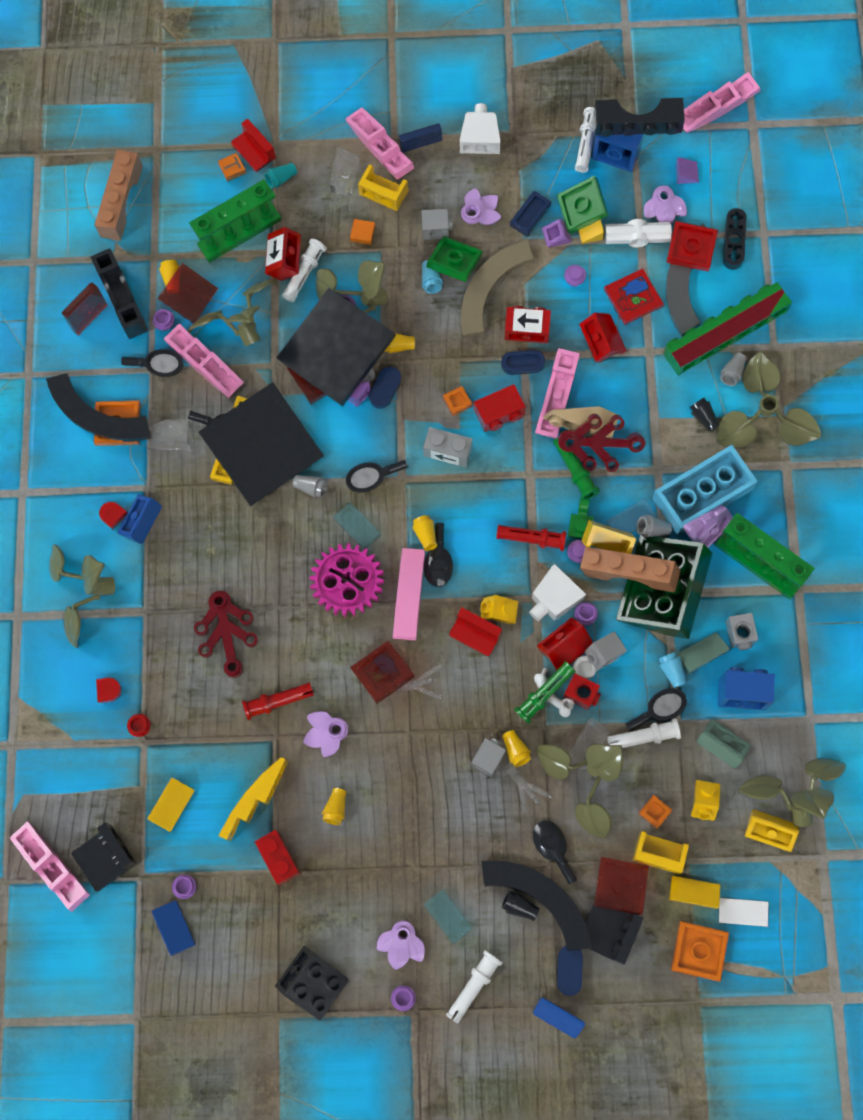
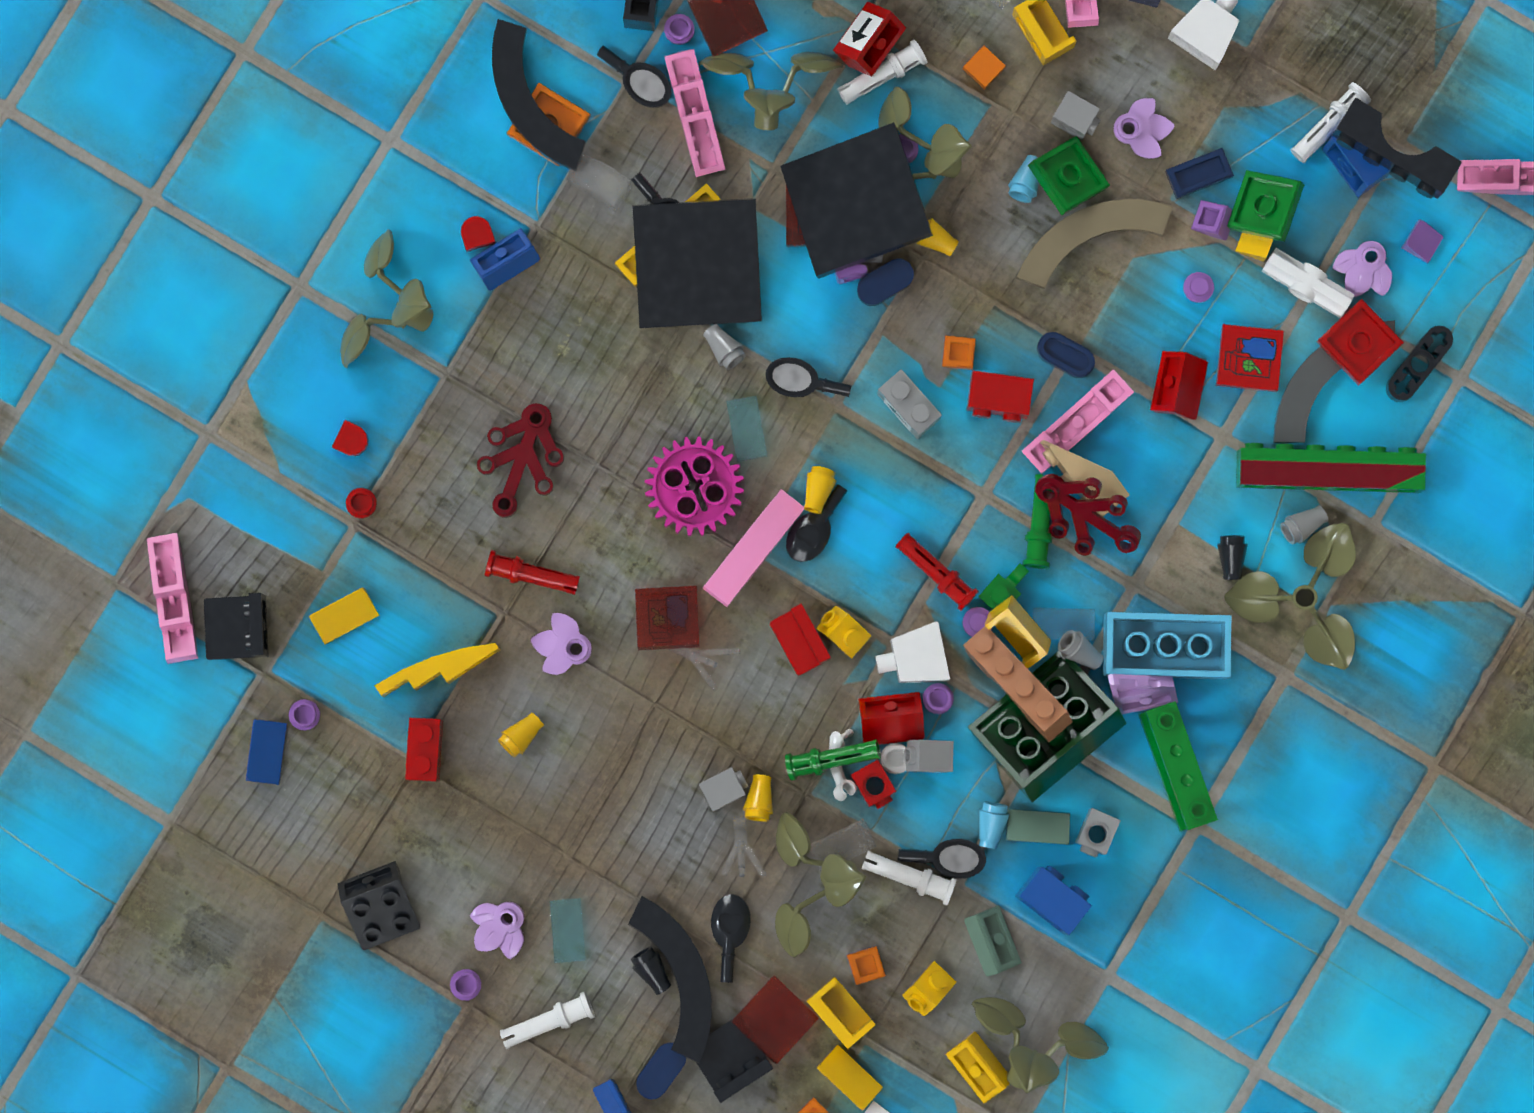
camera: 25 degrees right, 10 degrees up
(527, 324) = (1100, 313): brick -> none

